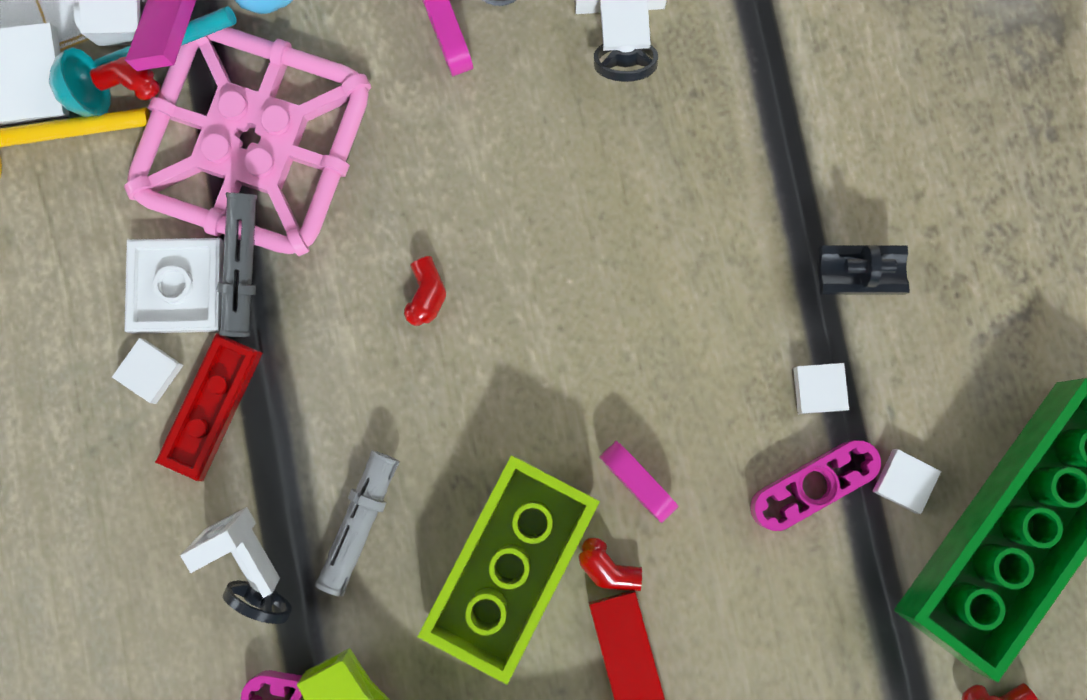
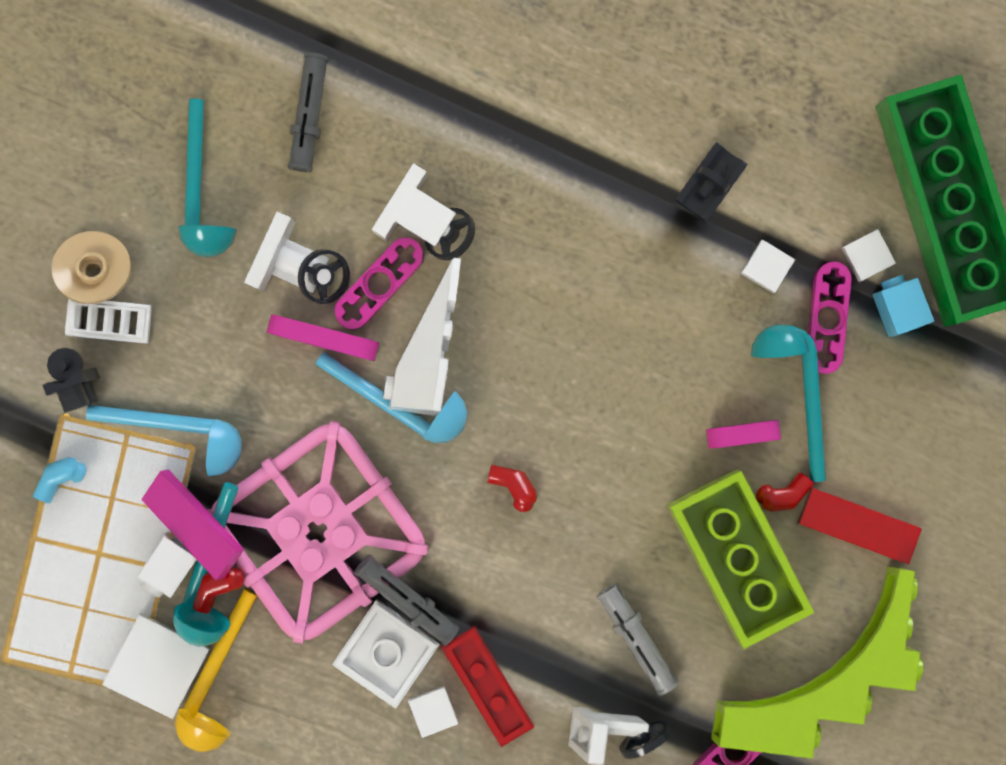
camera: 55 degrees left, 5 degrees up
(433, 177) = (444, 428): none -> medium azure piece
(483, 115) = (422, 368): none -> white wedge
(518, 14) = (351, 296): none -> dark pink beam
(769, 461) = (792, 341): none -> teal piece
(885, 551) = (902, 305): none -> medium azure brick

